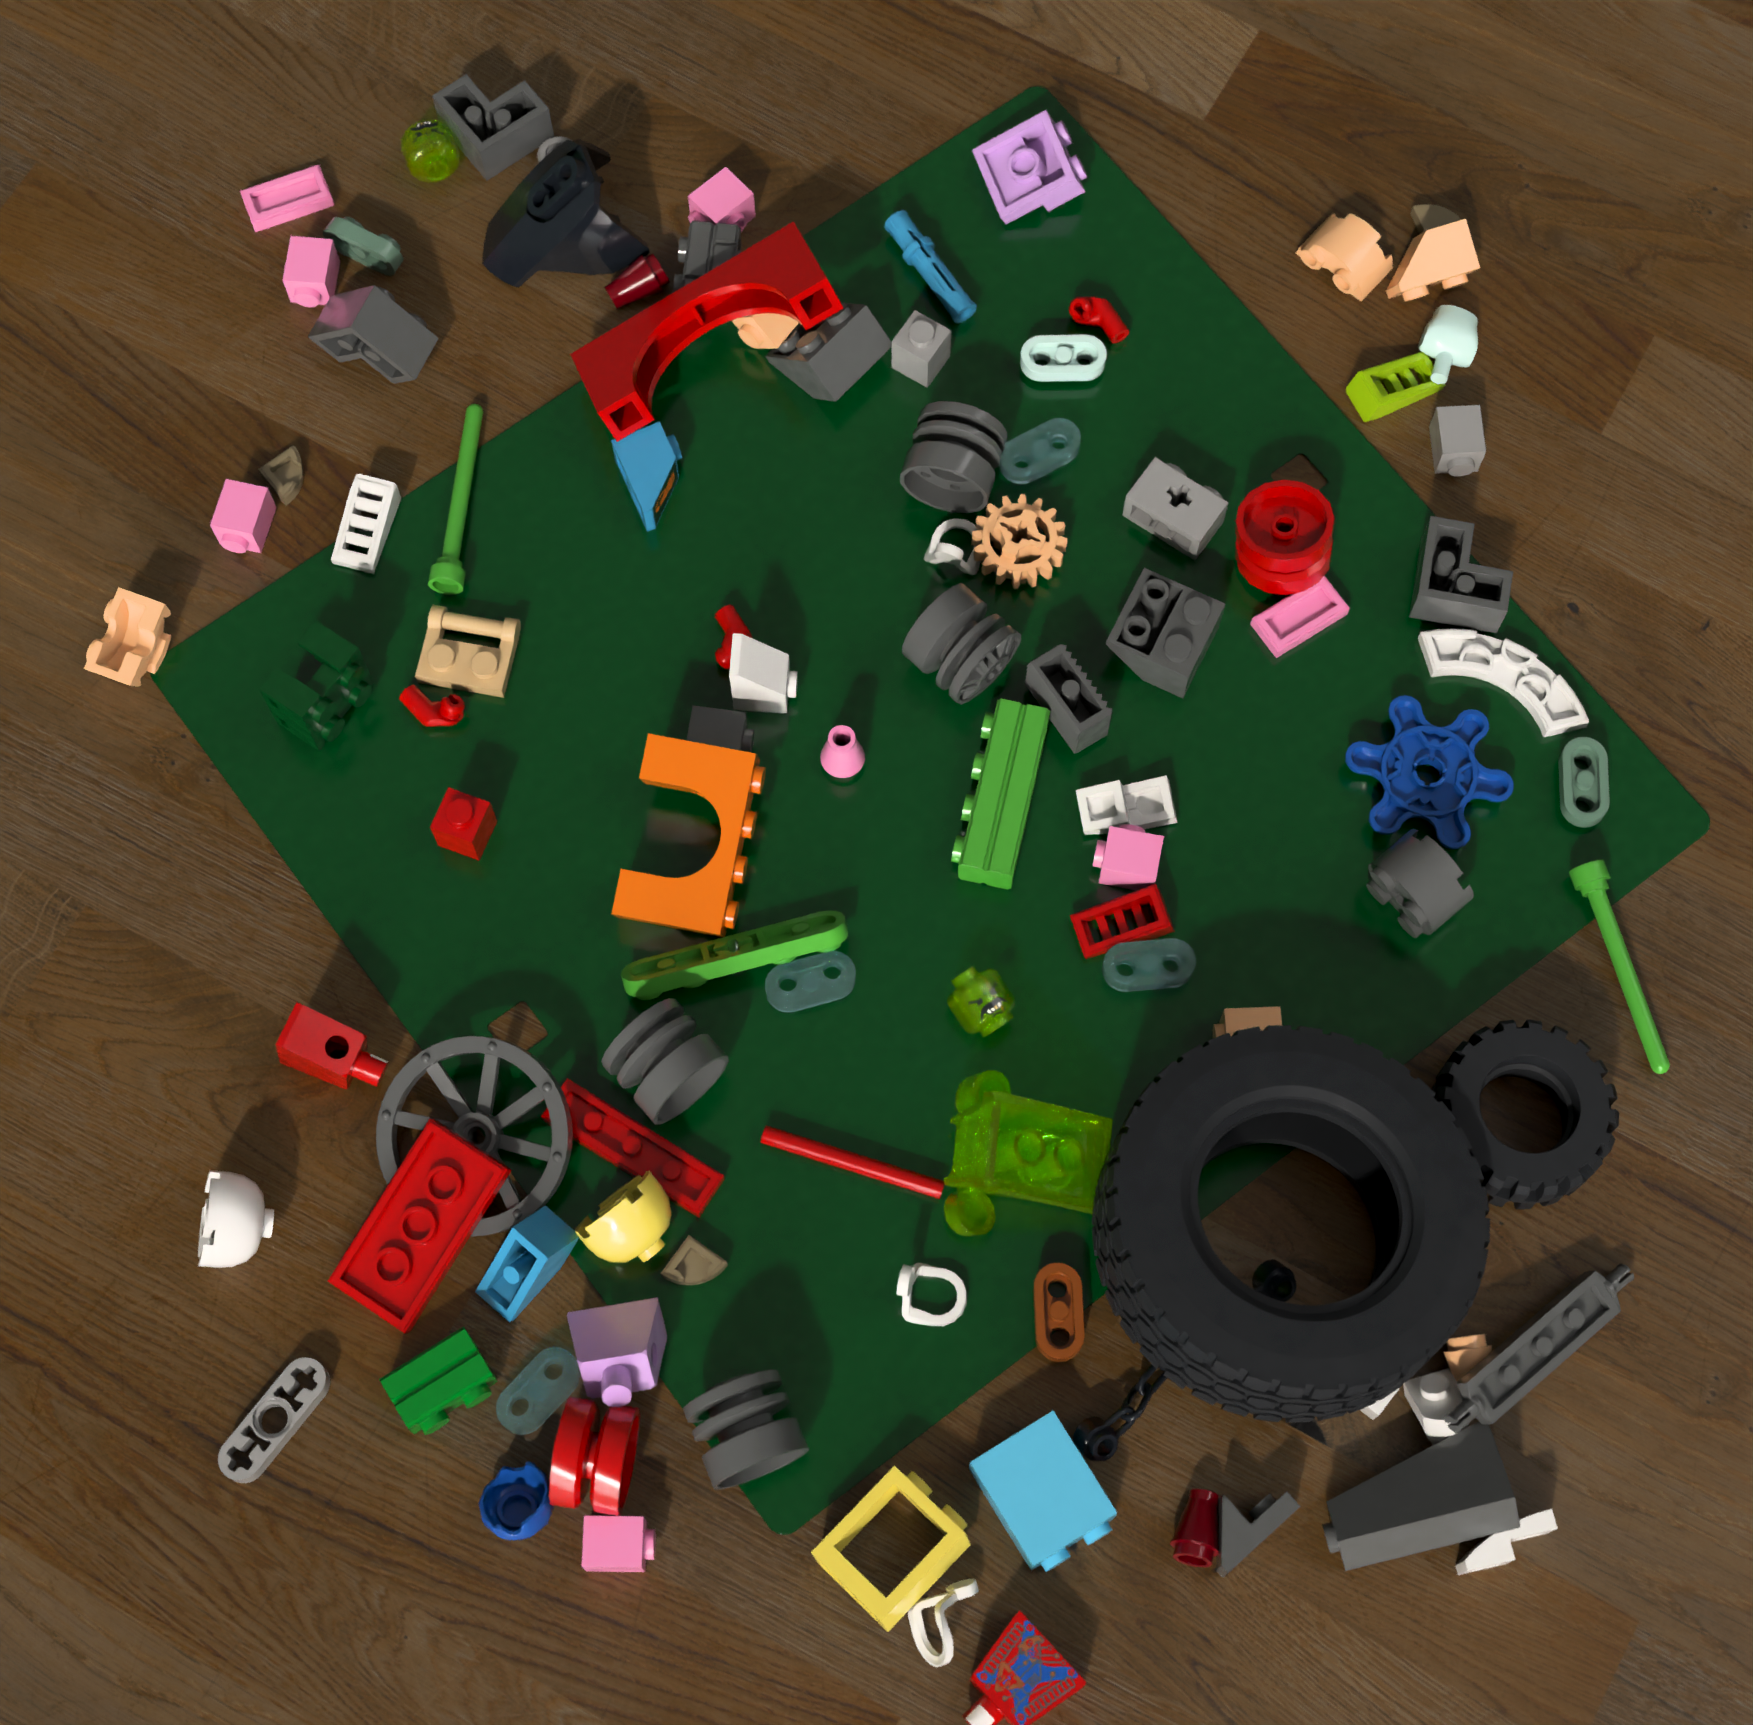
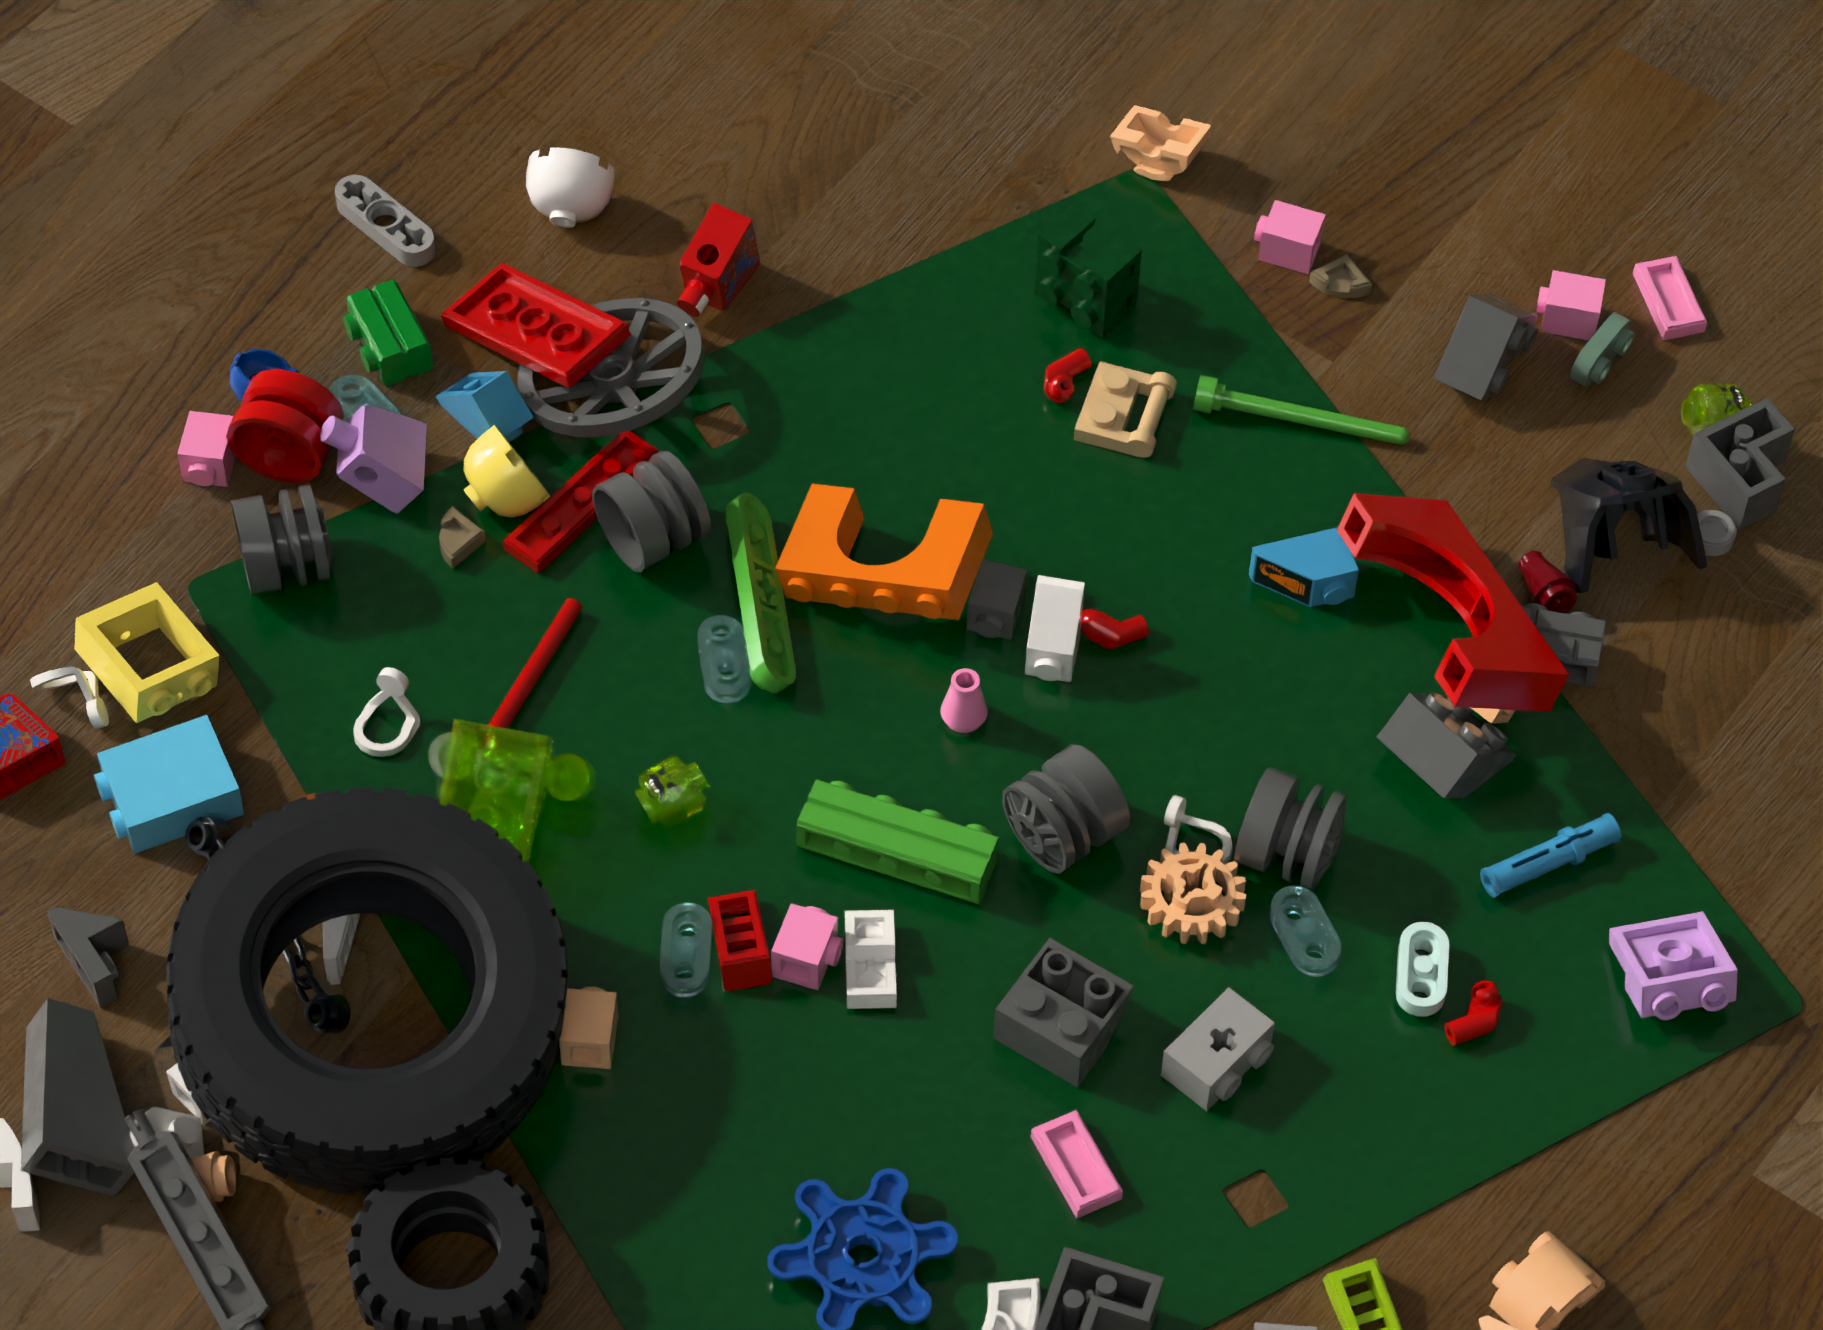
camera: 95 degrees right, 15 degrees down
(374, 497) = (1283, 350): white slope -> none
(463, 823) = (931, 383): red brick -> none
(722, 201) = (1636, 665): bright pink brick -> none
(921, 348) = (1439, 826): light grey brick -> none
(1069, 696) = (992, 906): dark grey brick -> none
(1197, 1531) = (97, 900): dark red cone -> none
(1284, 537) = (1162, 1140): red wheel -> none
(1419, 883) = (725, 1202): dark grey brick -> none

